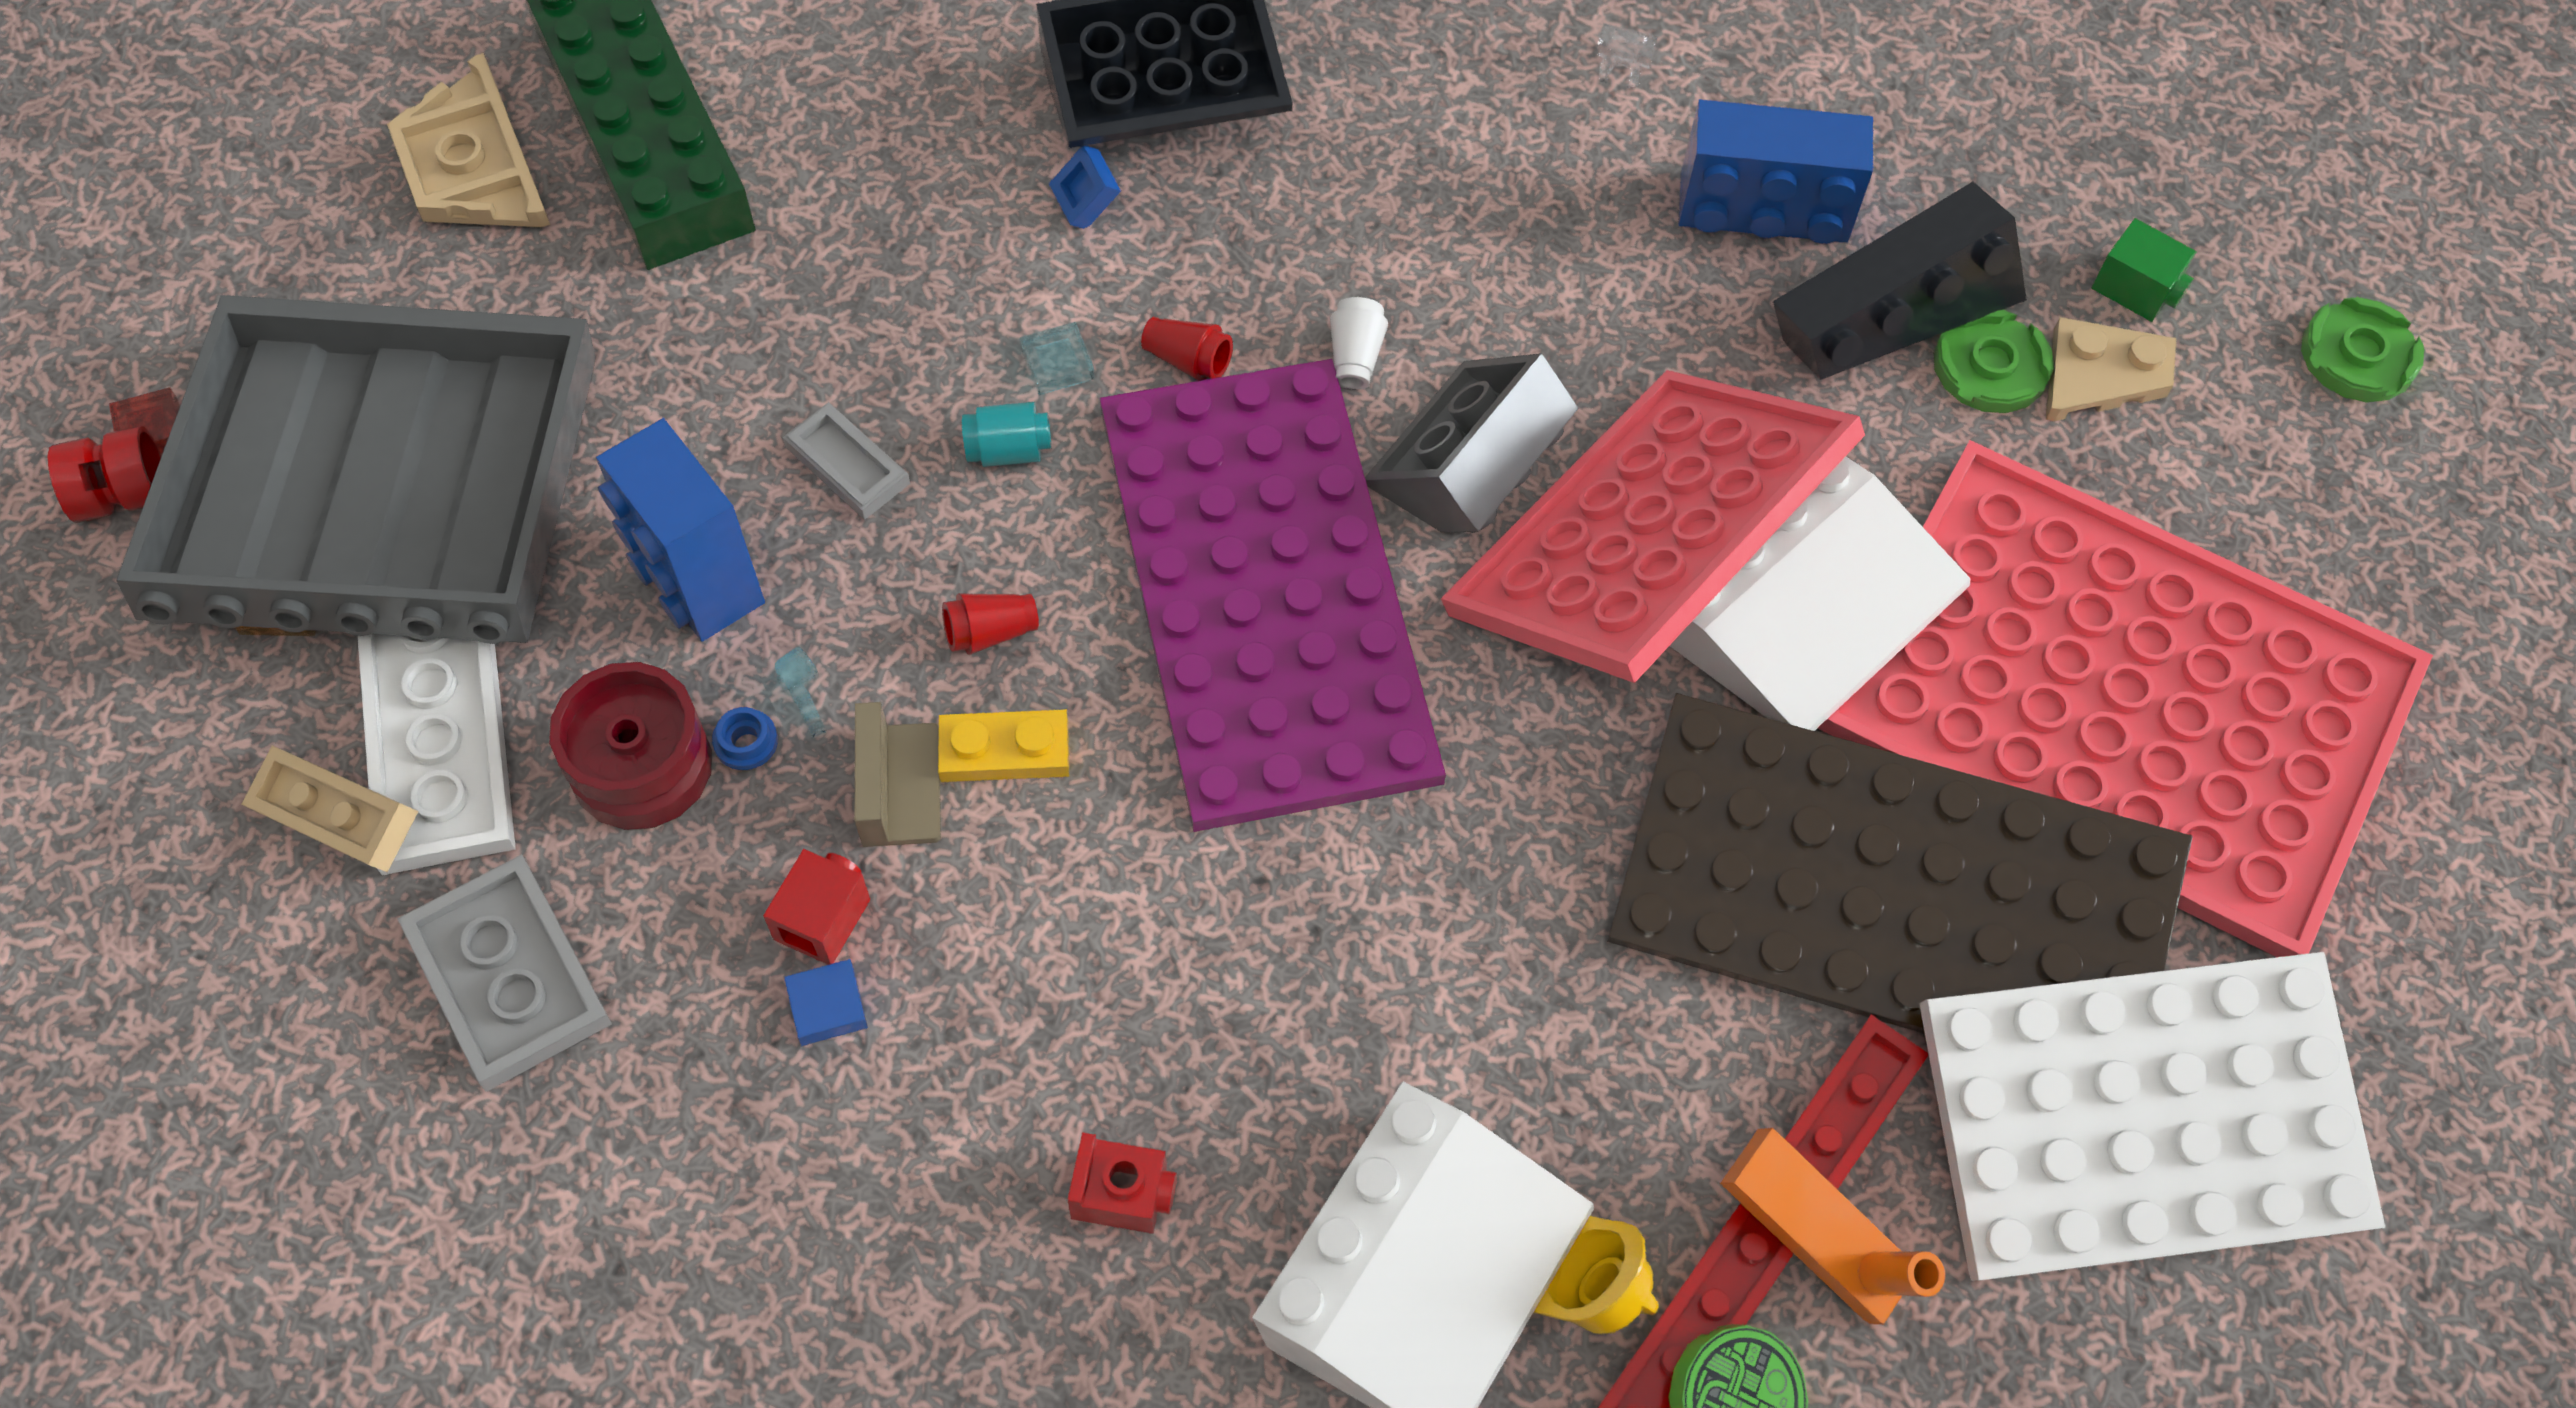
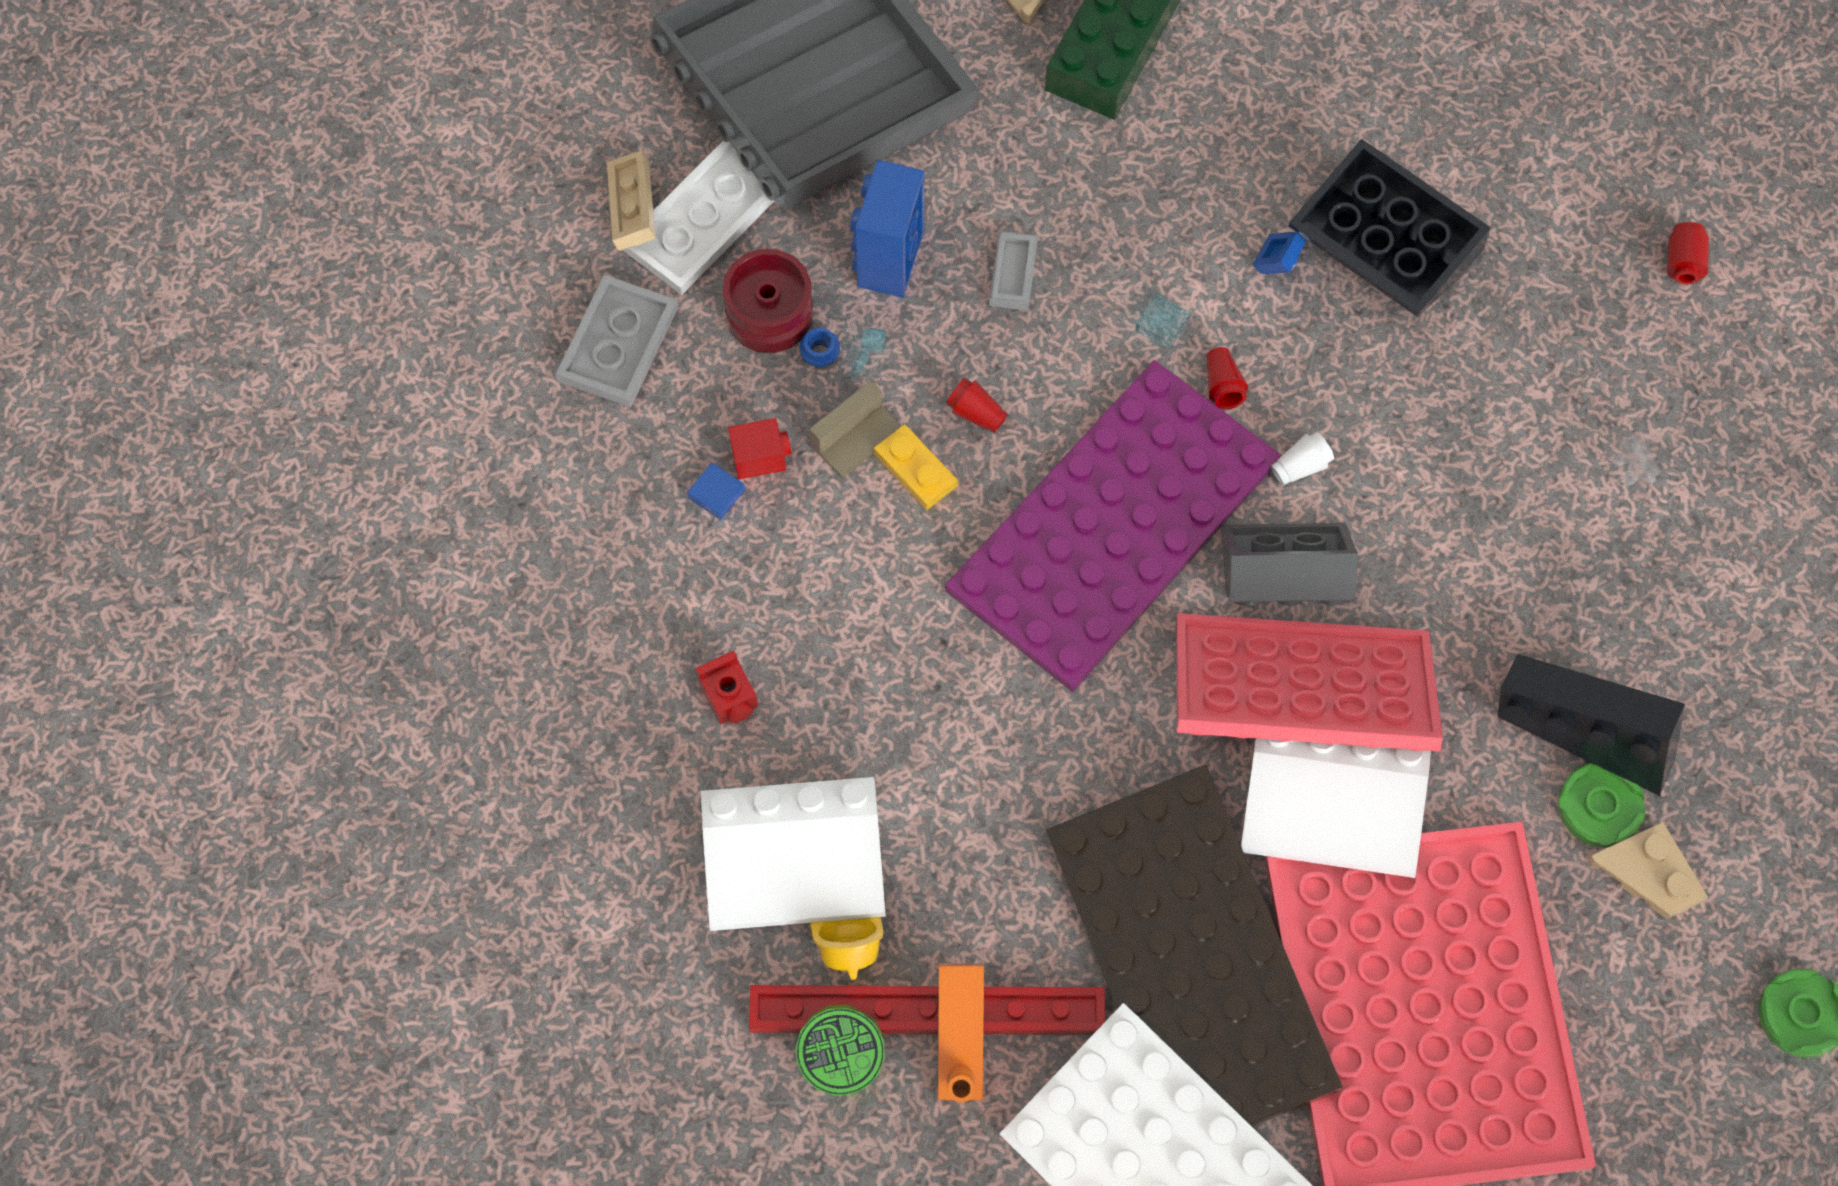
camera: 55 degrees right, 5 degrees up
(1005, 434) = (1090, 332): teal brick -> none
(1775, 171) = (1610, 596): blue brick -> none
(2145, 271) = (1740, 849): green brick -> none

